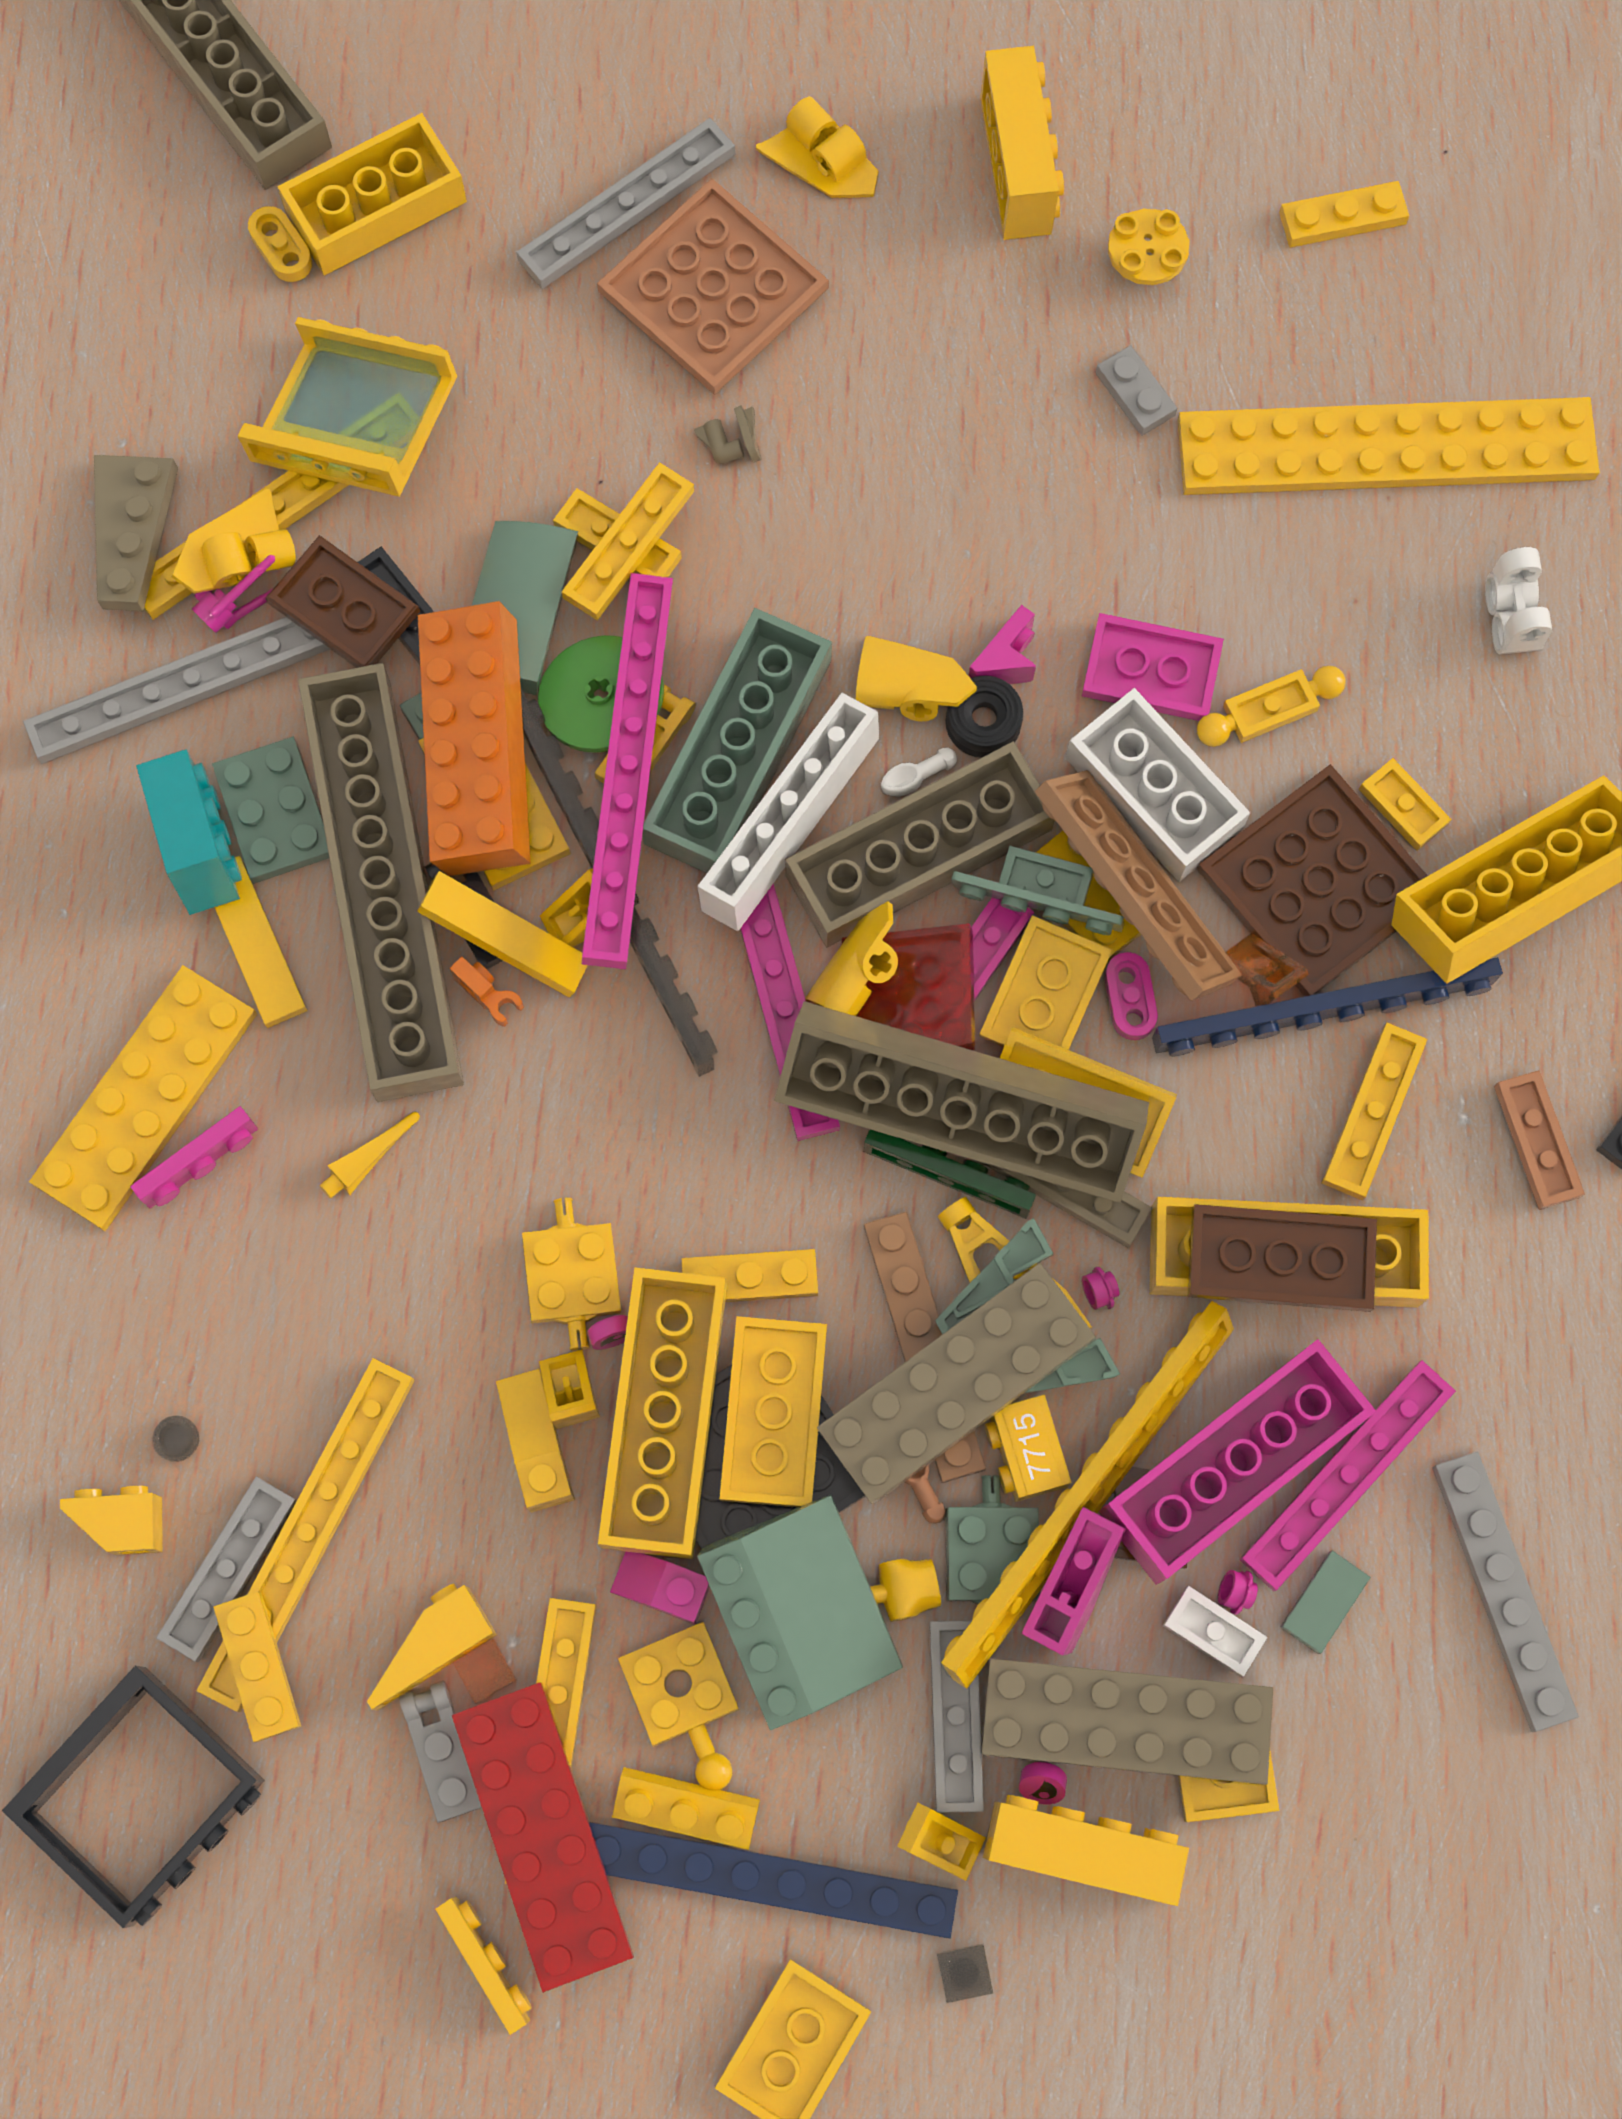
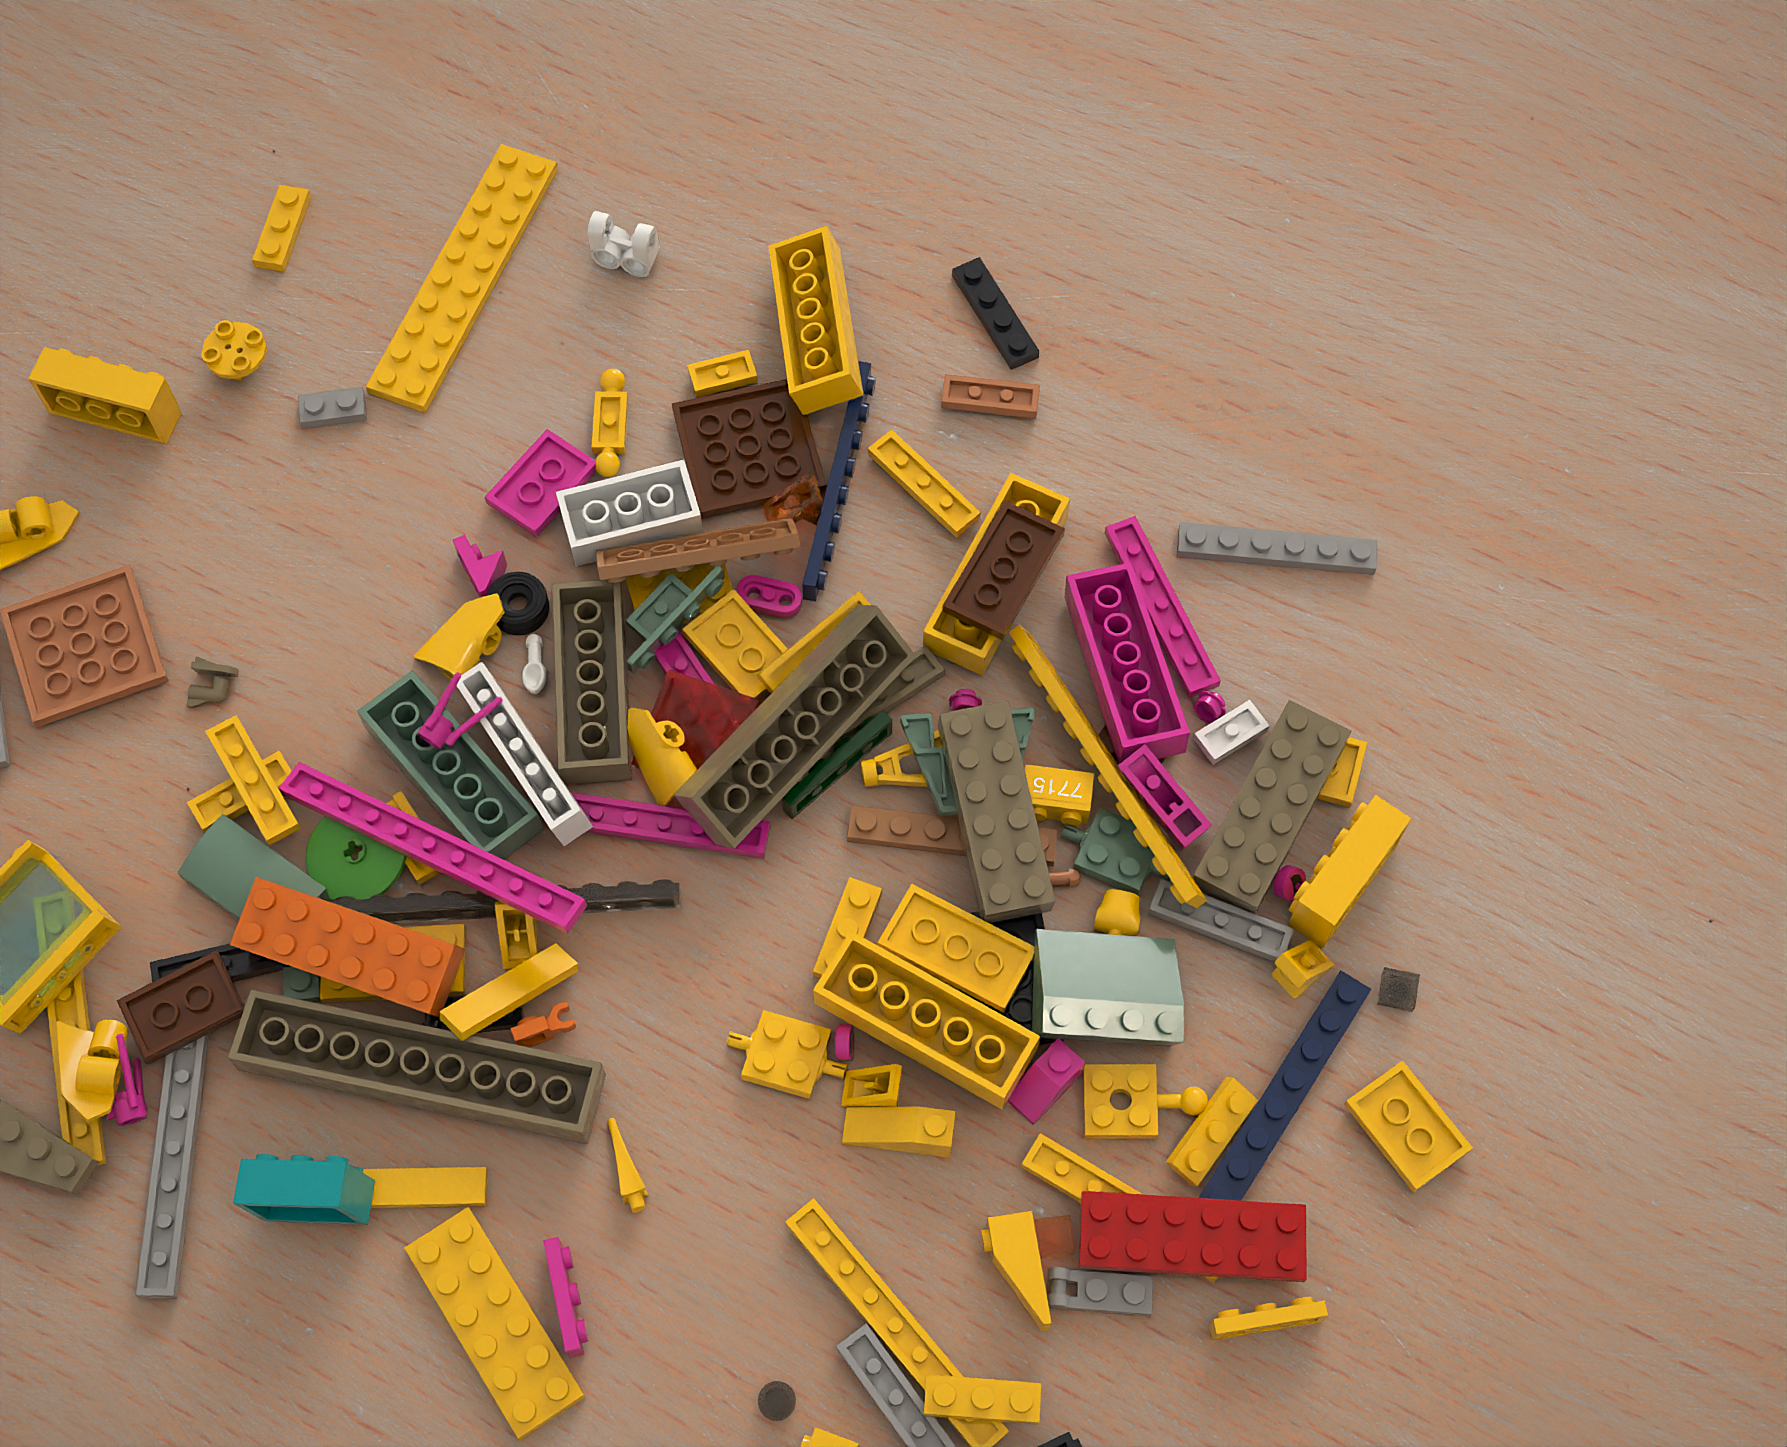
camera: 65 degrees left, 10 degrees down
(272, 809) = (315, 1126): sand green plate -> none
(767, 702) = (437, 728): none -> dark pink plant
(1325, 1602) = (1239, 657): sand green tile -> none

